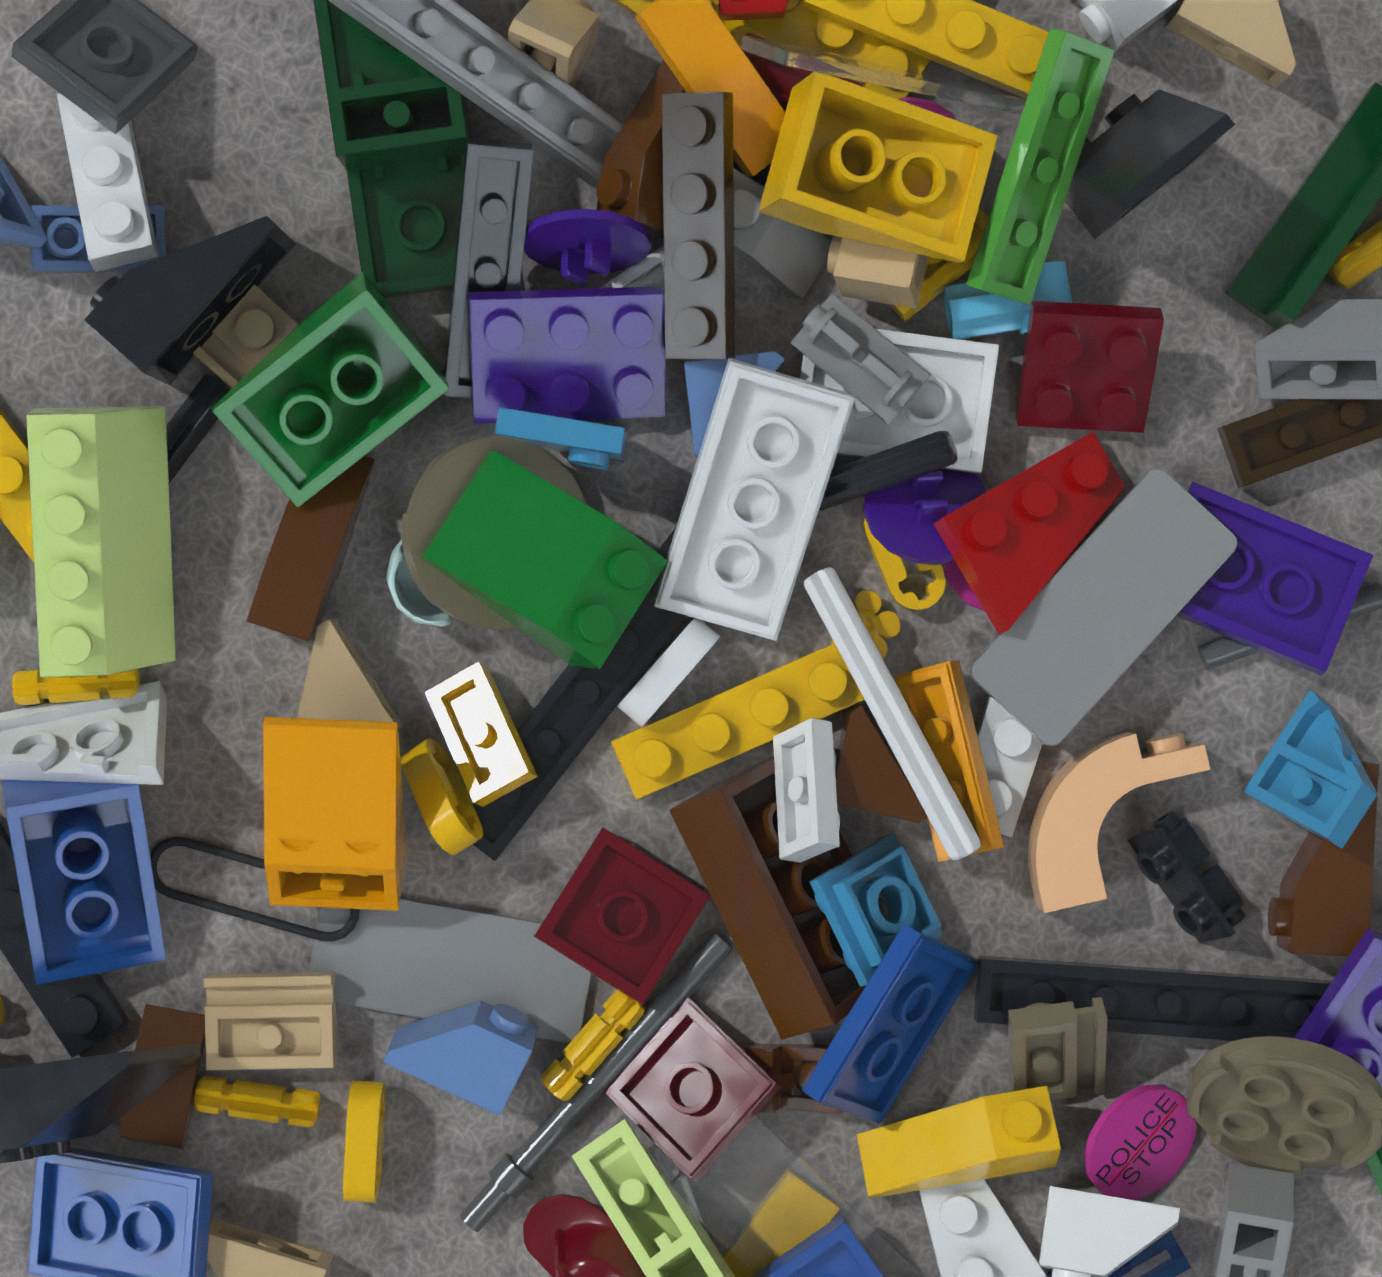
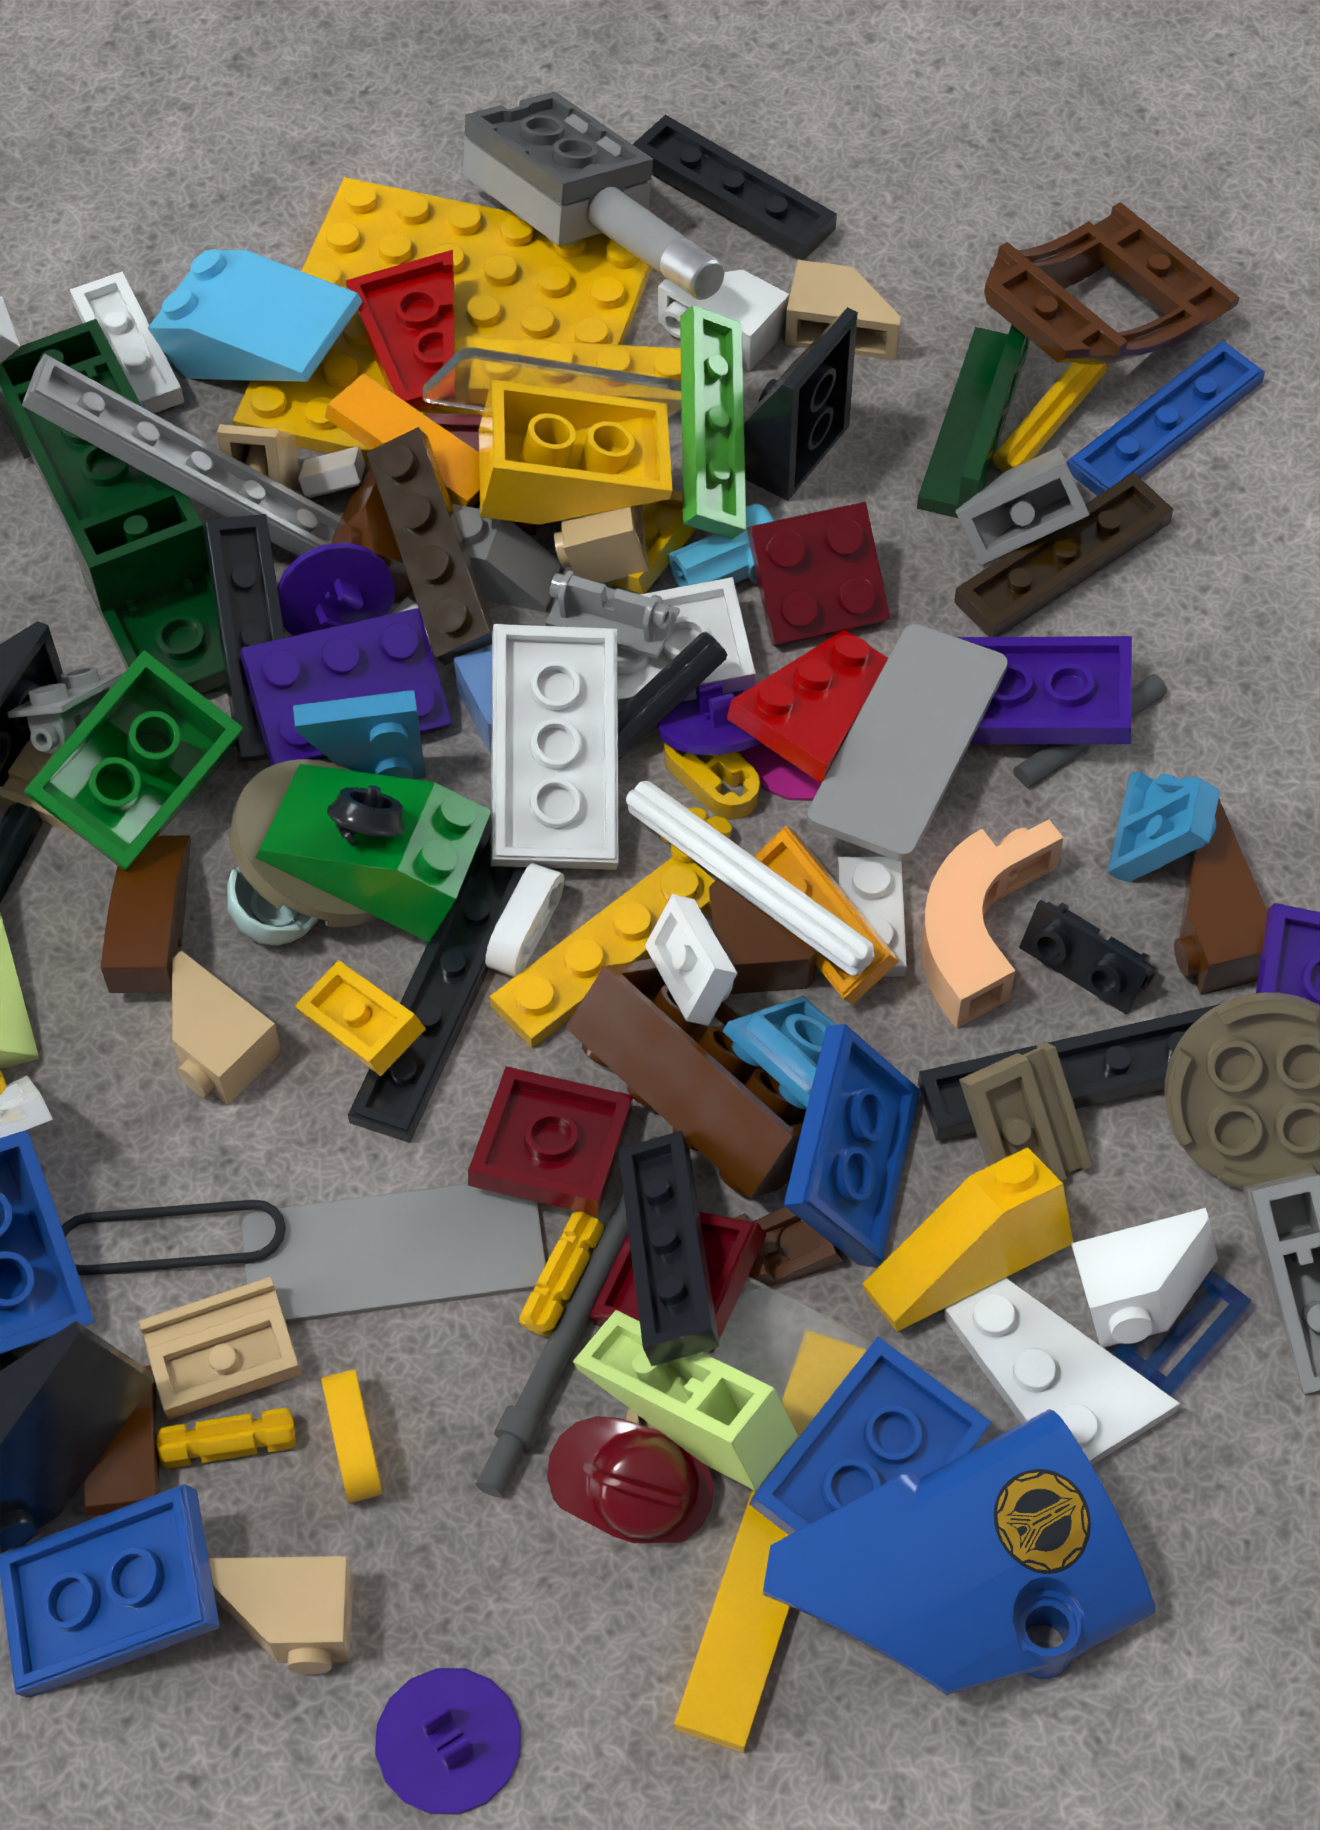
camera: 20 degrees left, 30 degrees down
(281, 288) = (60, 708): none -> light grey hinge
(333, 813) = (230, 1099): light orange slope -> none
(441, 796) = (337, 1079): yellow beam -> none
(467, 1051) = (435, 1305): medium blue slope -> none
(536, 569) = (366, 813): none -> black hat
(626, 61) = (332, 472): none -> white tile
(686, 1088) = (667, 1249): none -> black plate
(1139, 1142) = (1142, 1178): dark pink piece -> none

